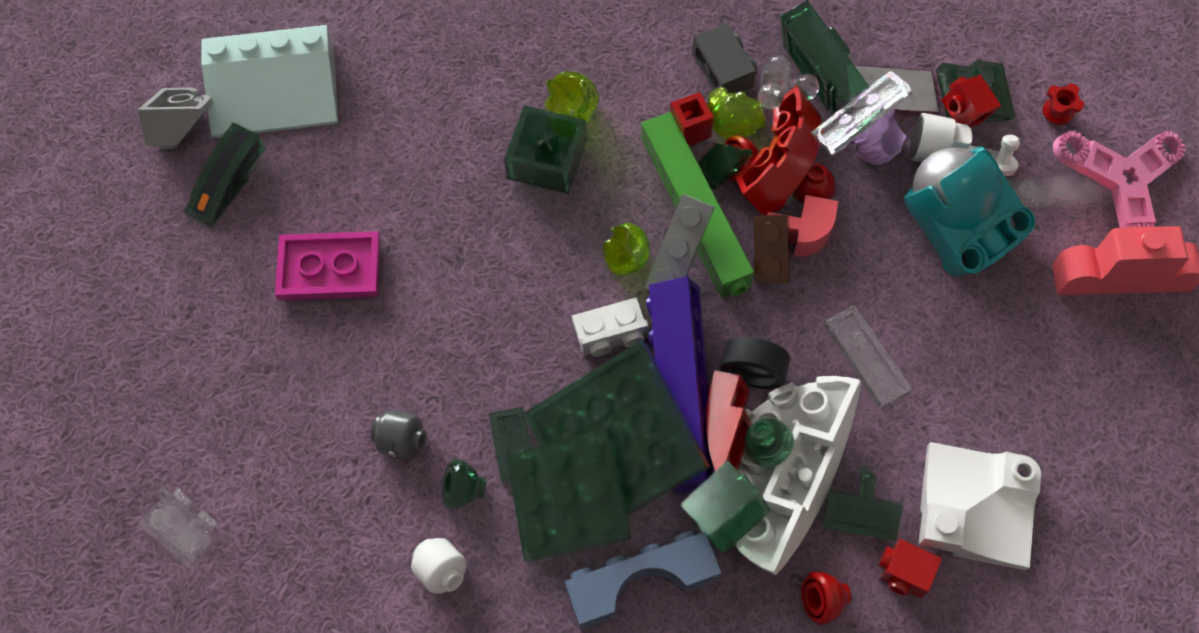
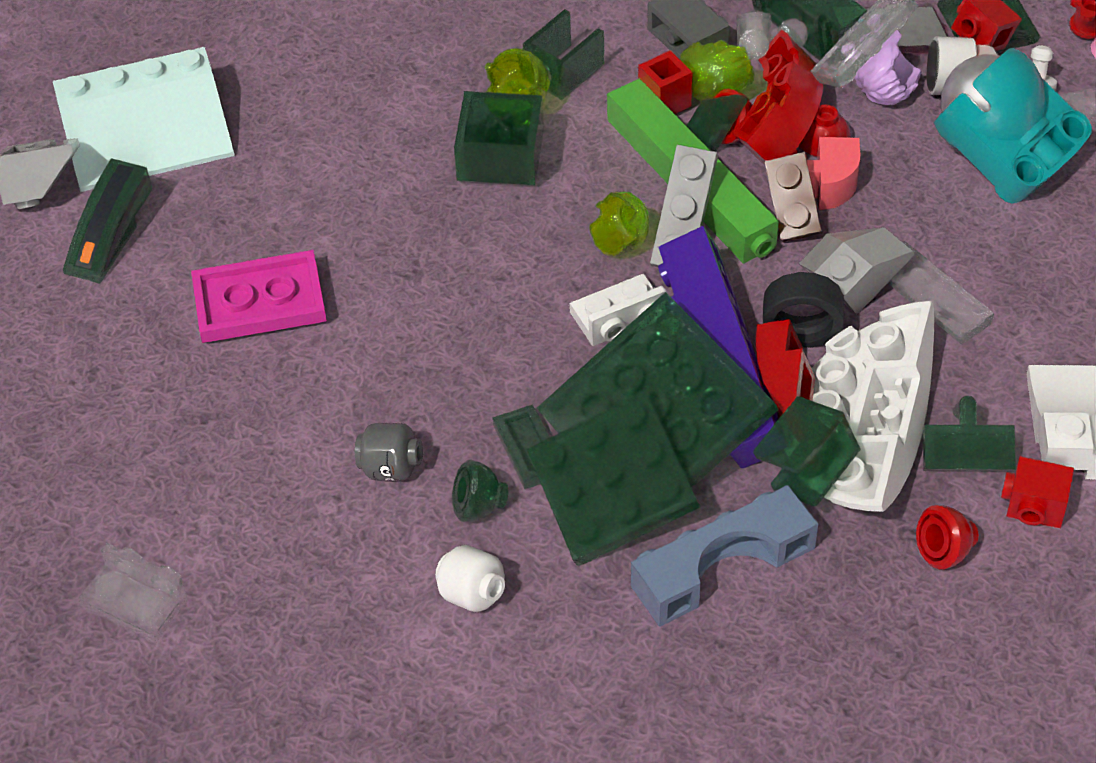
camera: 10 degrees left, 15 degrees down
(626, 85) = (575, 65): none -> clear green piece
(768, 442) = (839, 381): clear green brick -> none
(808, 321) = (858, 262): none -> light grey slope

